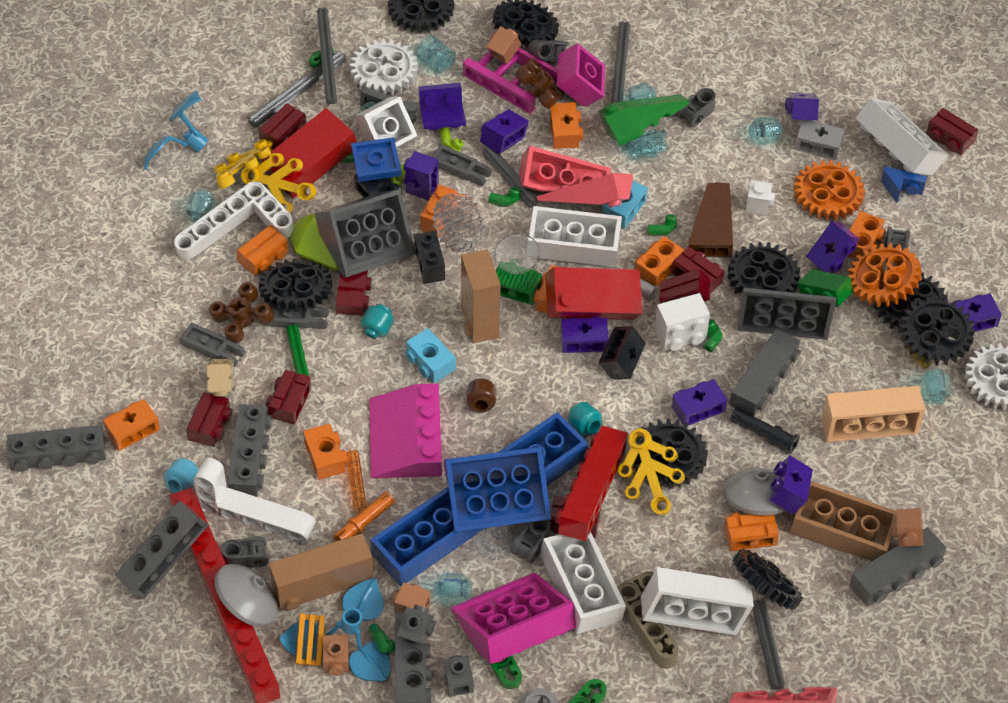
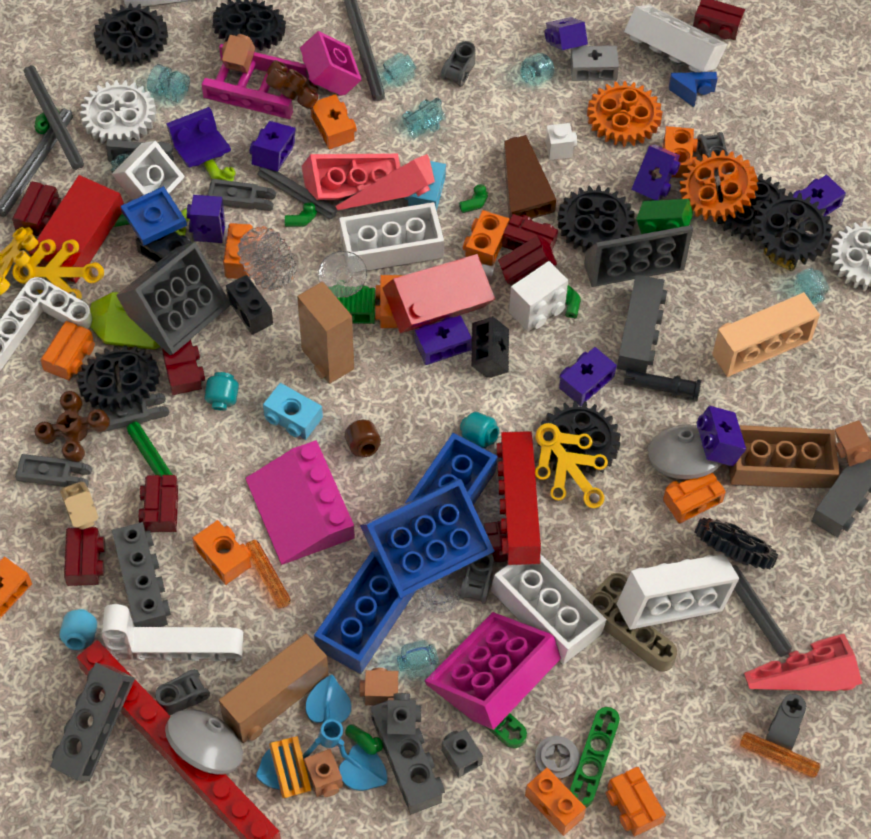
camera: 20 degrees left, 5 degrees up
(357, 524) = (288, 621): orange pin -> none
(550, 49) = (284, 46): dark grey piece -> none
(628, 119) = (398, 96): green wedge -> none

